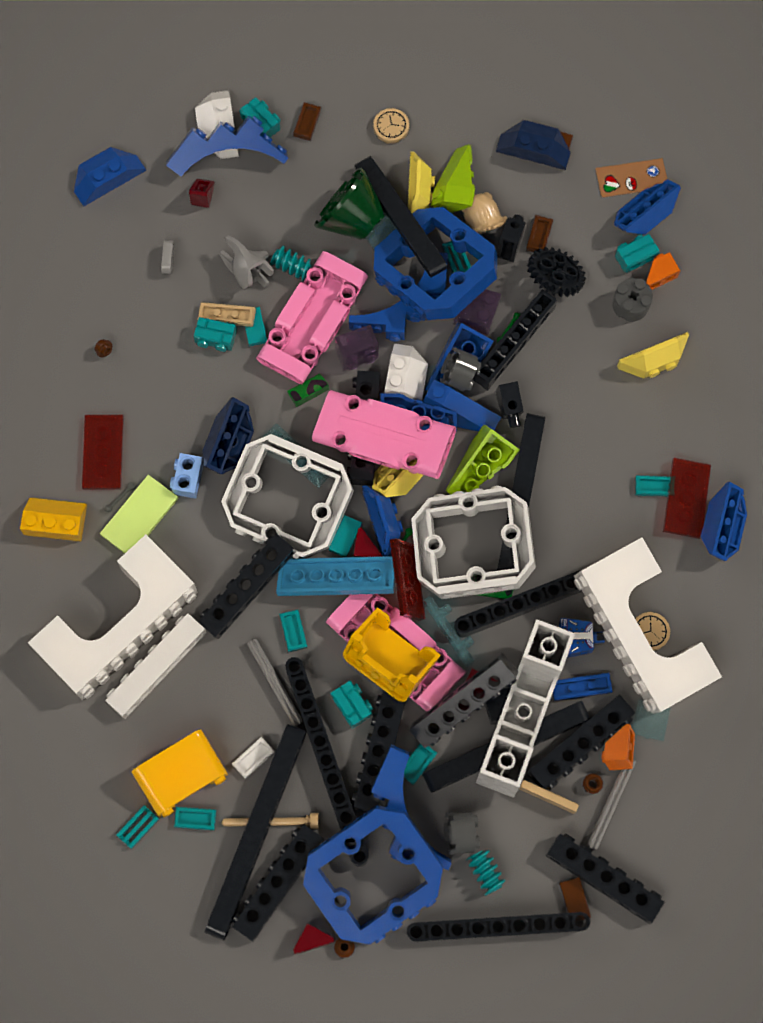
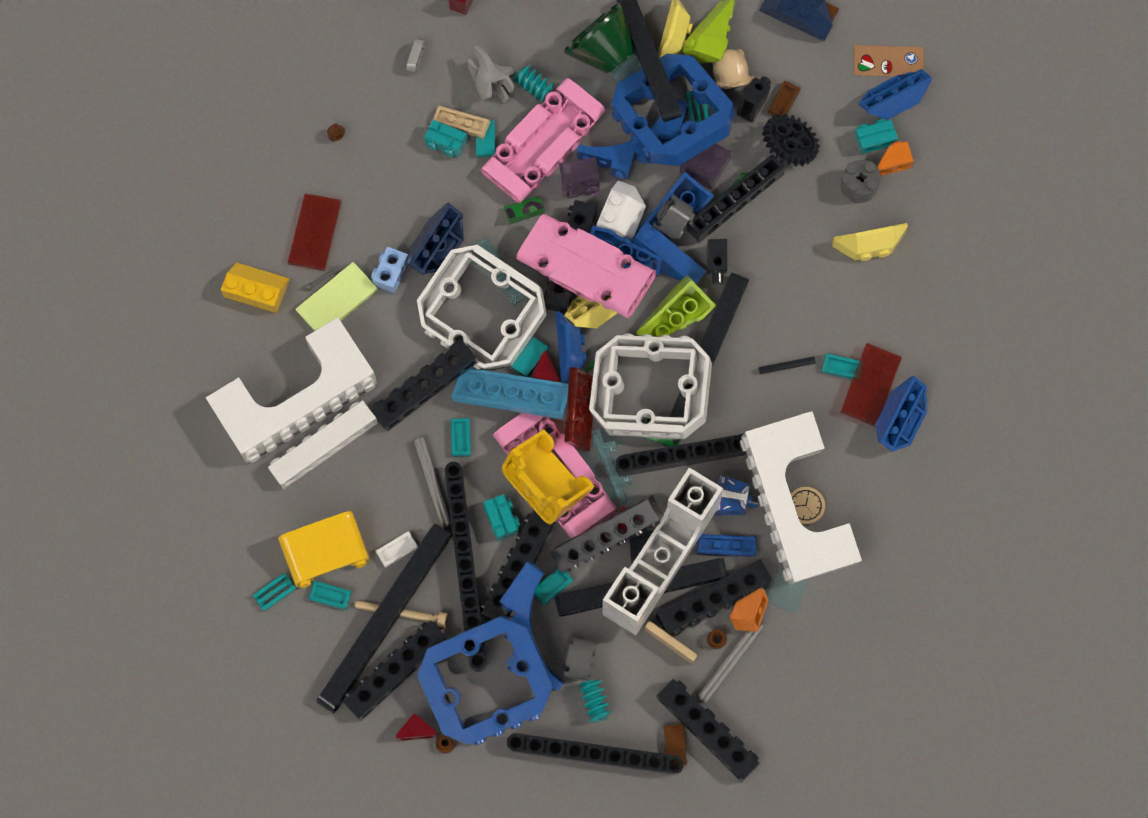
camera: 15 degrees right, 0 degrees up
(601, 494) = (786, 365): none -> black bar

